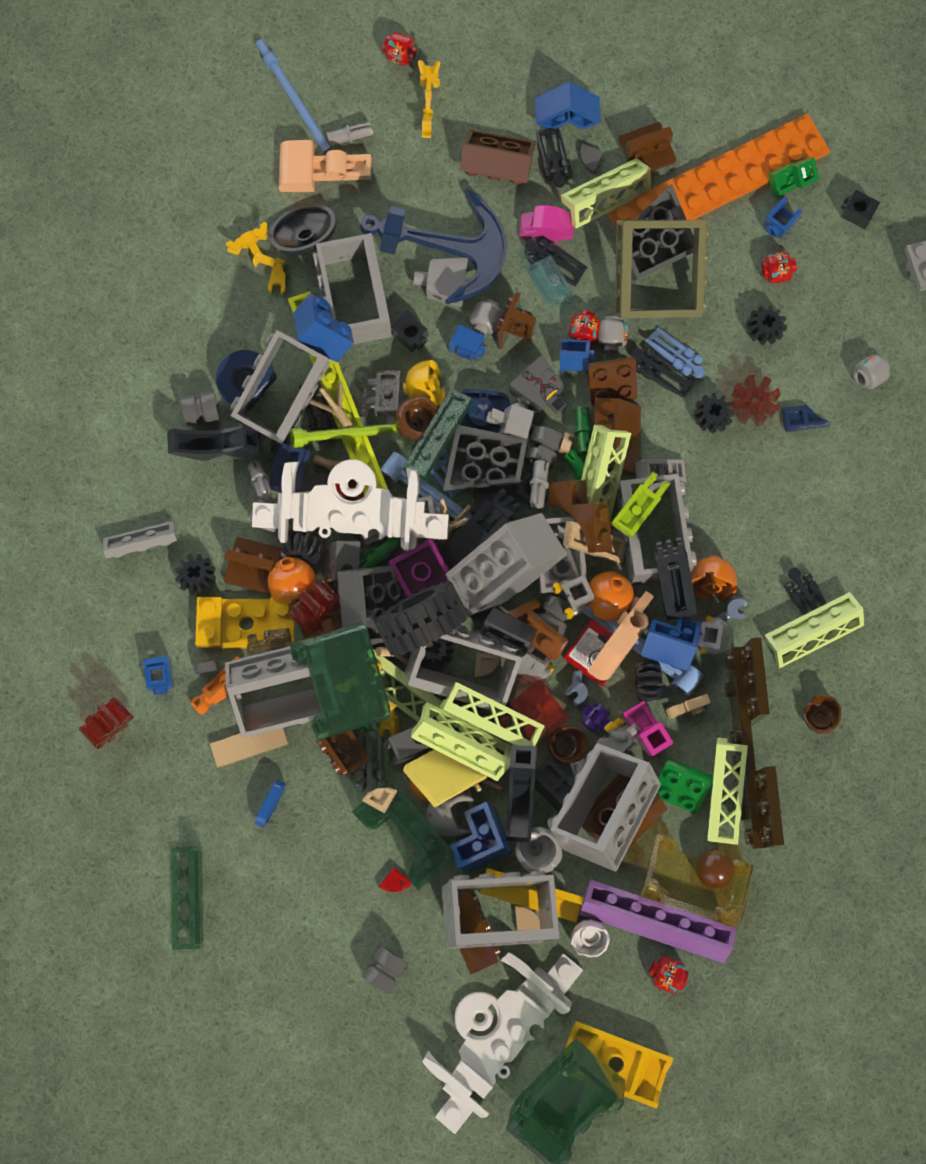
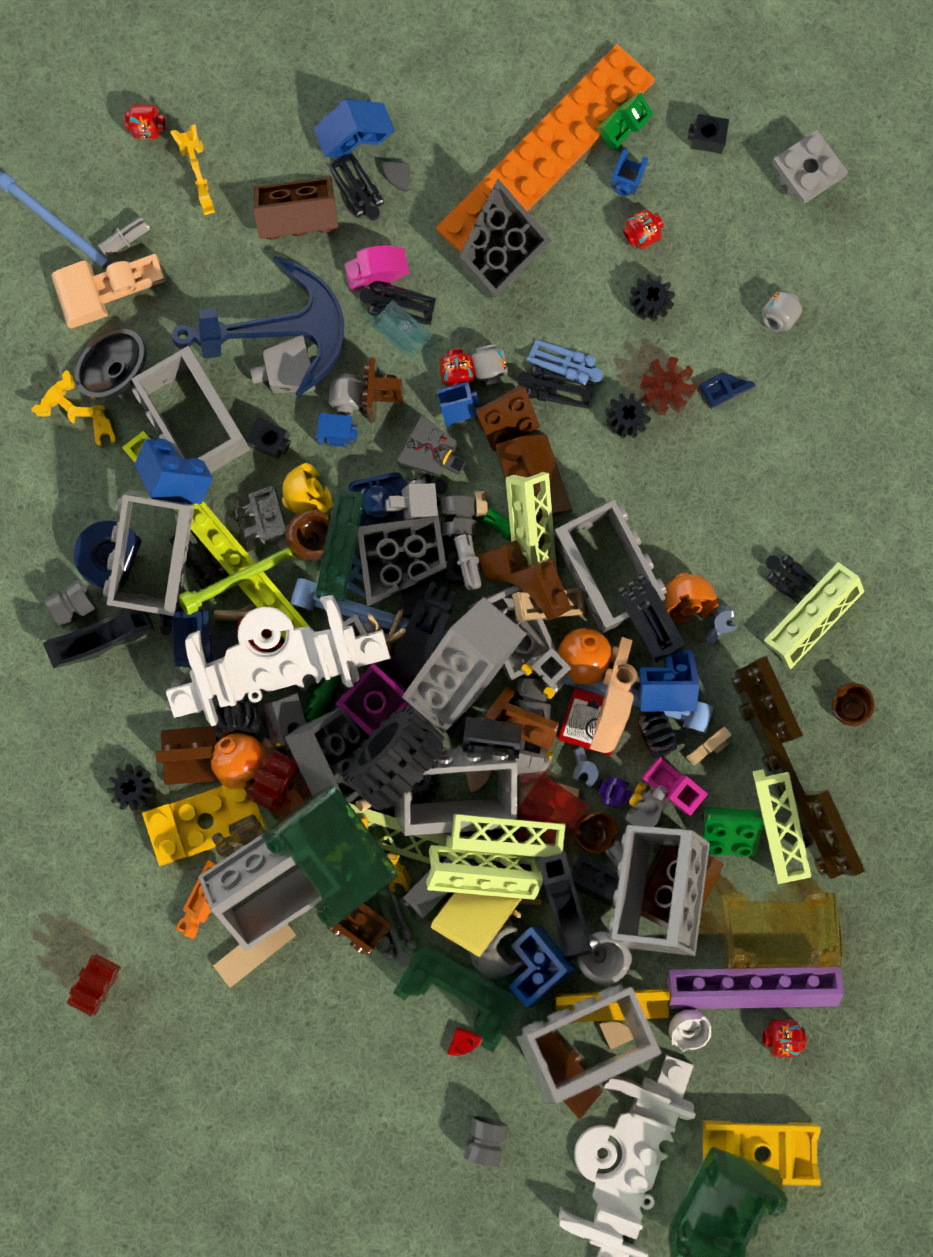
camera: 15 degrees left, 5 degrees up
(139, 540) = (56, 771): light grey plate -> none
(158, 674) = (131, 911): blue window -> none
(195, 898) = (257, 1138): clear green fence -> none
(206, 667) = (179, 884): dark grey tile -> none
(260, 480) = (164, 661): light grey axle -> none
(270, 803) = (301, 1006): blue tile -> none
(336, 409) = (219, 555): tan plant -> none
(380, 798) = (418, 969): tan tile -> none
(583, 429) = (493, 482): green pin -> none
(607, 186) = (428, 203): yellowish green fence -> none
(624, 268) = (477, 289): olive window -> none
(639, 507) = (585, 552): lime hinge -> none
(645, 467) = (577, 506): light grey slope -> none
(649, 145) = (456, 143): reddish brown bracket -> none
(715, 636) = (712, 659): light grey piece -> none
(715, 868) = (795, 910): reddish brown hair -> none

